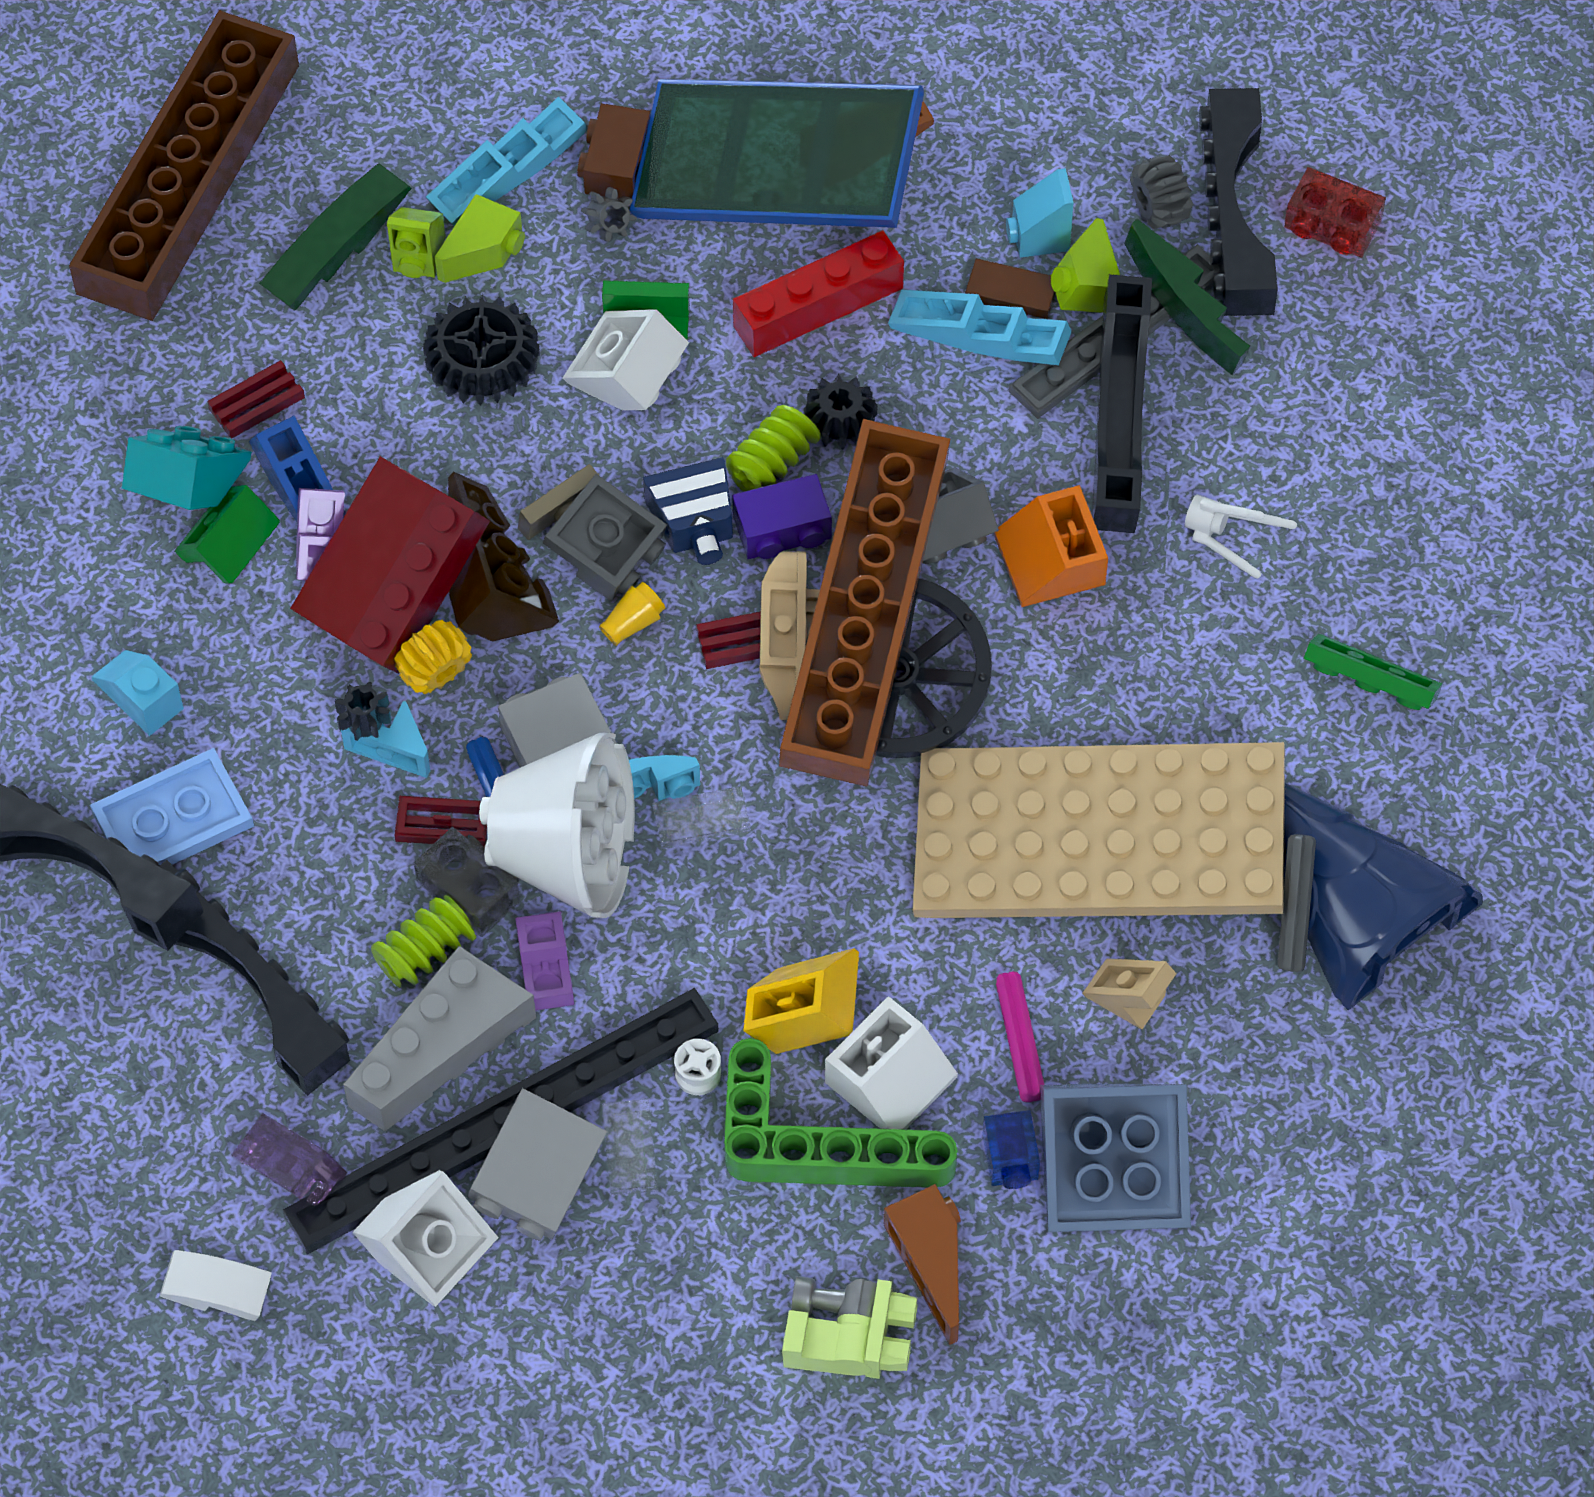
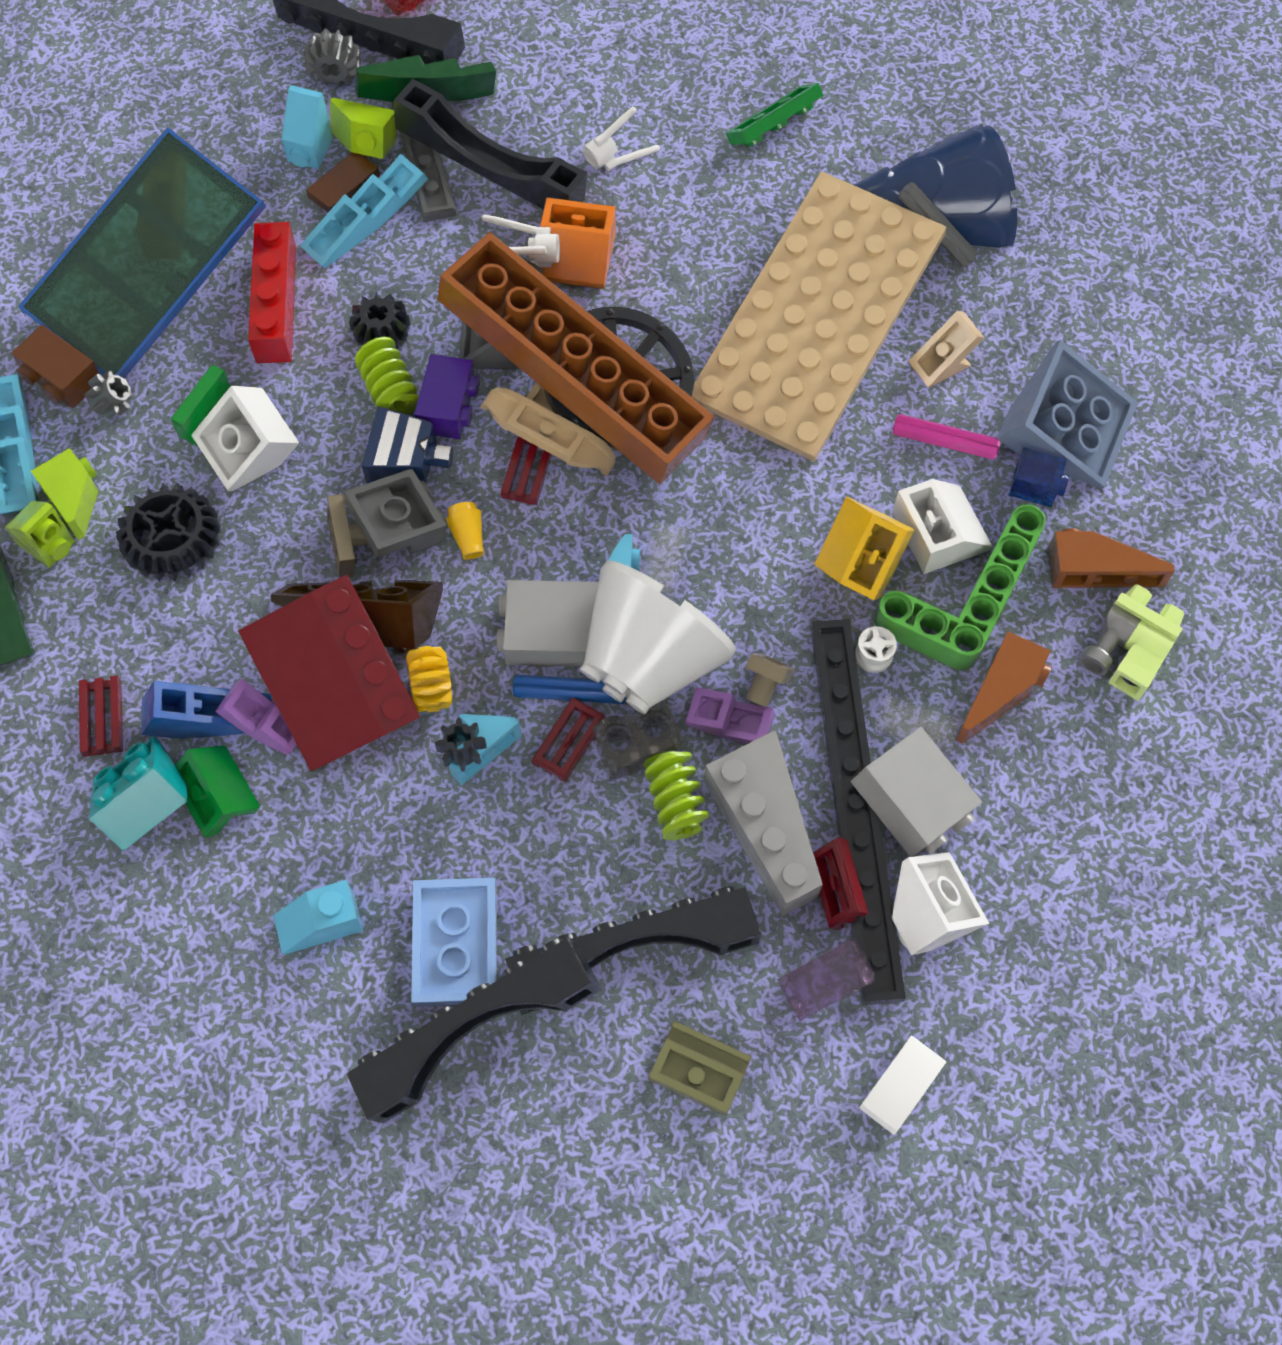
camera: 65 degrees left, 5 degrees up
(145, 1090) = (699, 1068): none -> olive plate
(399, 1134) = (843, 881): none -> dark red tile
(605, 964) = (768, 674): none -> dark tan tile
(726, 1212) = (1009, 681): none -> dark orange slope
(1009, 511) = (542, 248): none -> white plant

